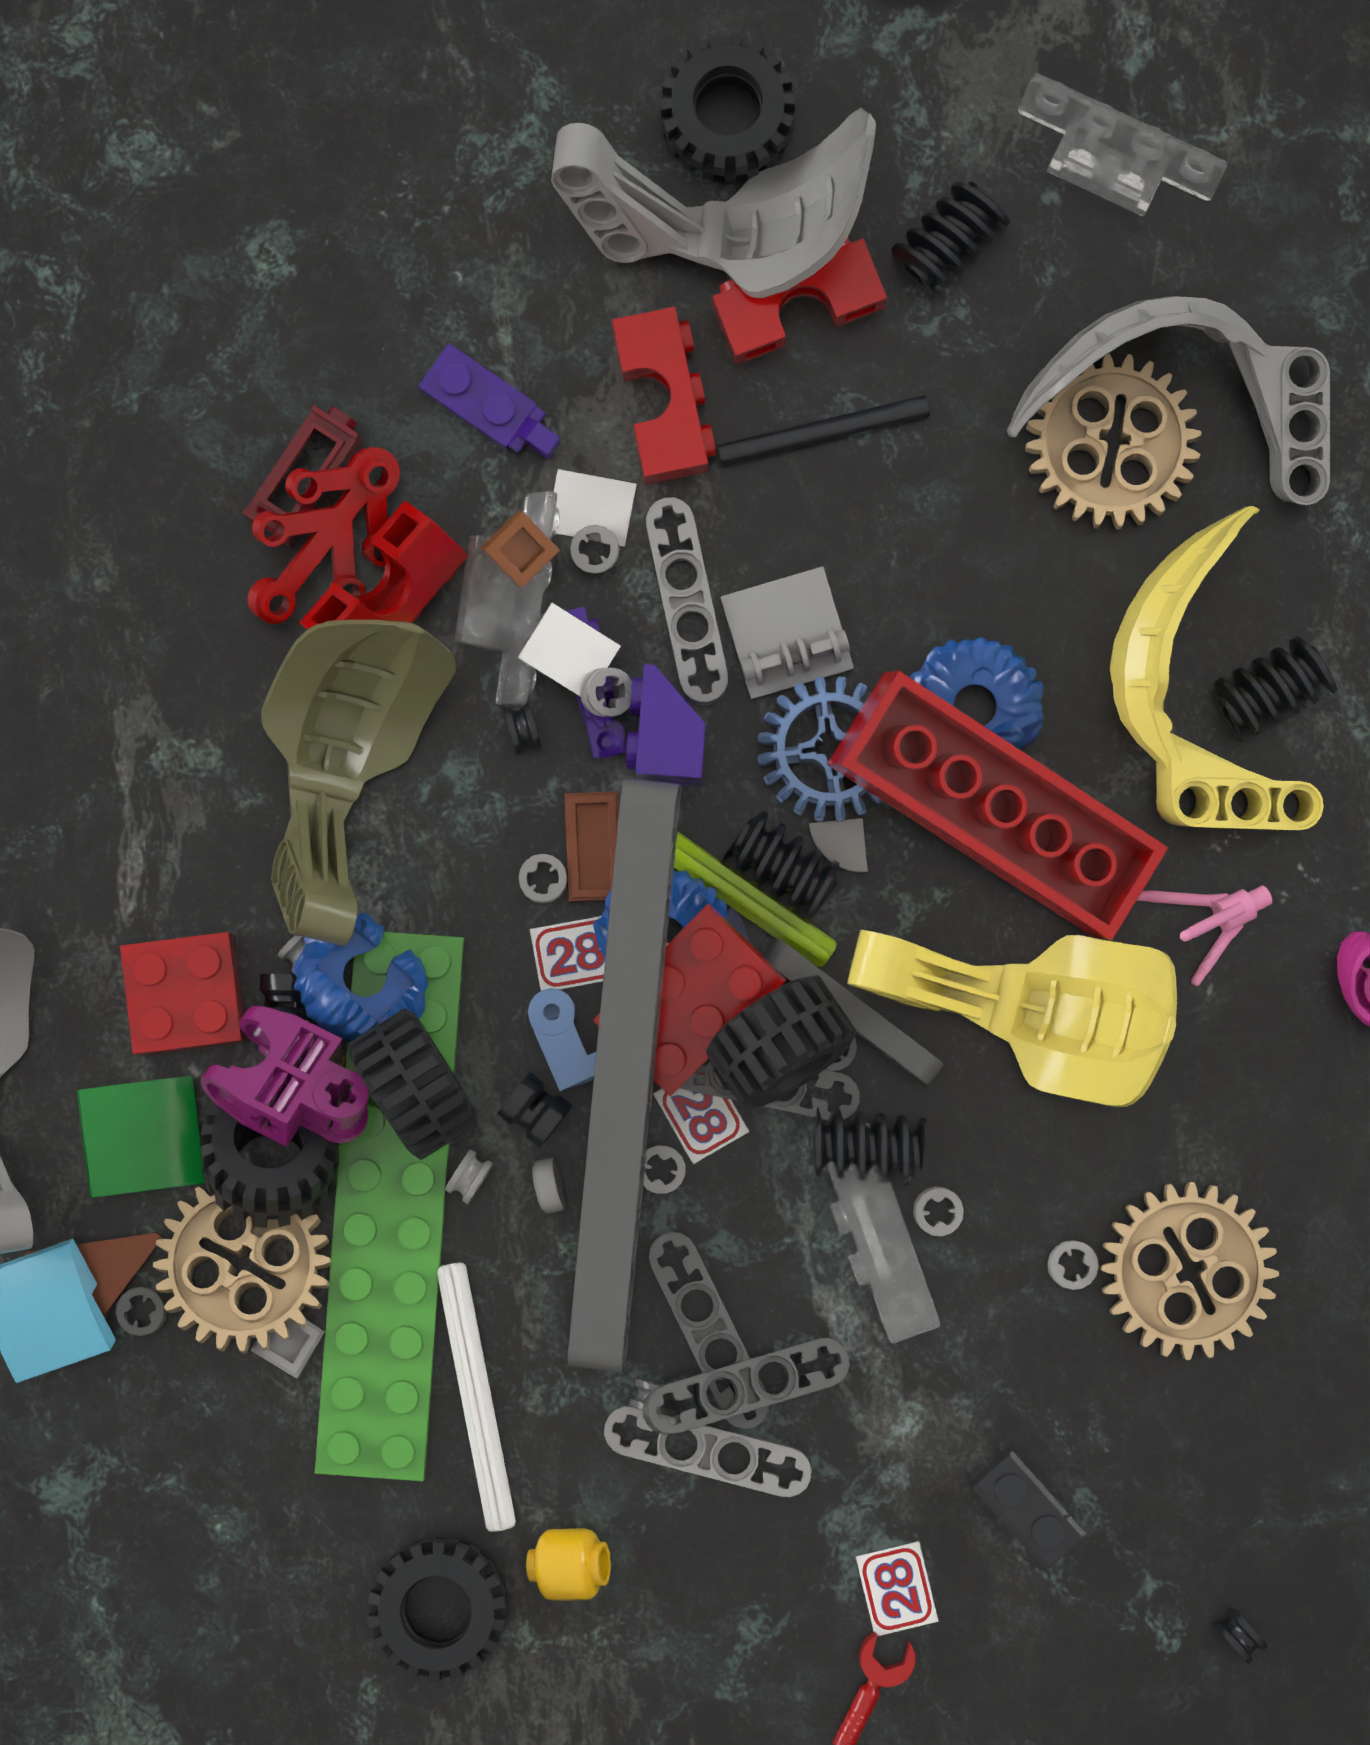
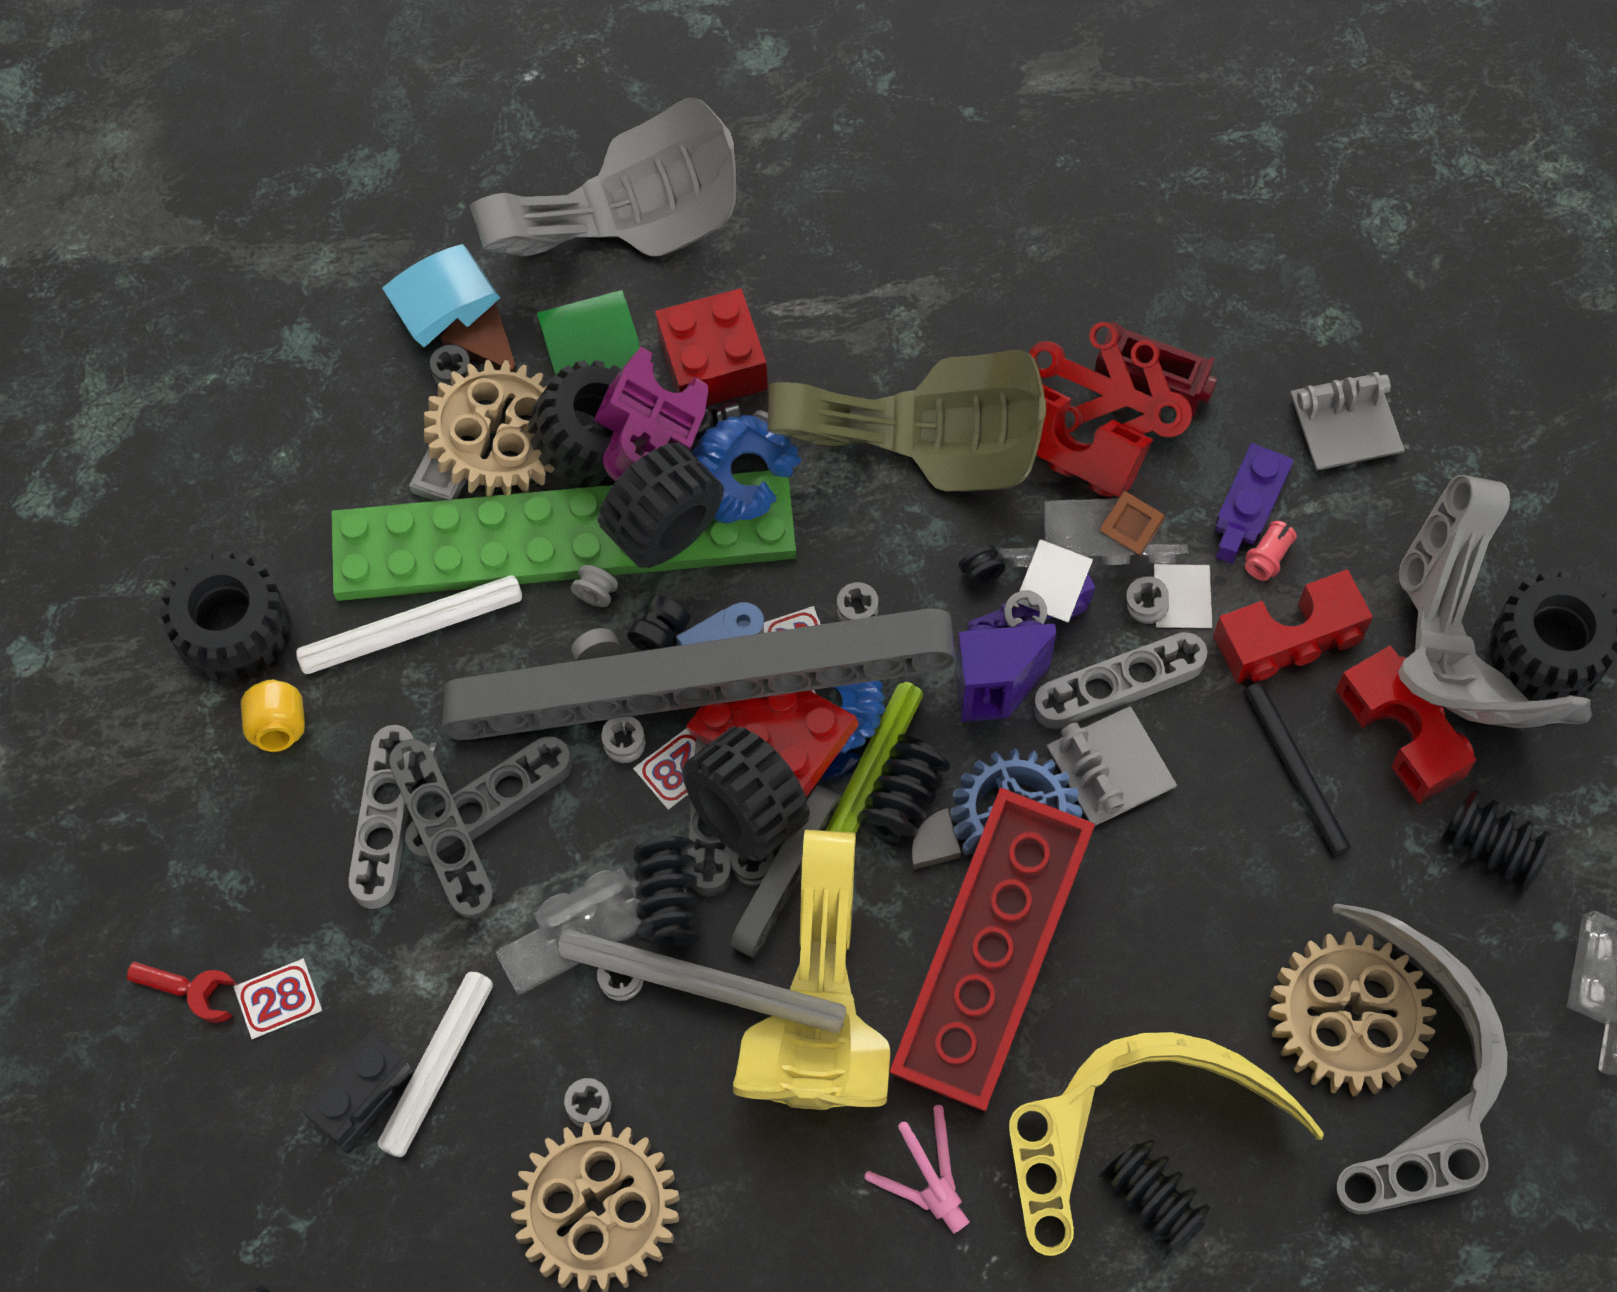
camera: 80 degrees right, 20 degrees down
(406, 268) = (1347, 420): none -> light grey hinge
(560, 398) = (1266, 557): none -> coral pin
(968, 1124) = (702, 981): none -> light grey axle
(999, 670) = (1119, 938): blue piece -> none
(1003, 1422) = (435, 1064): none -> white axle

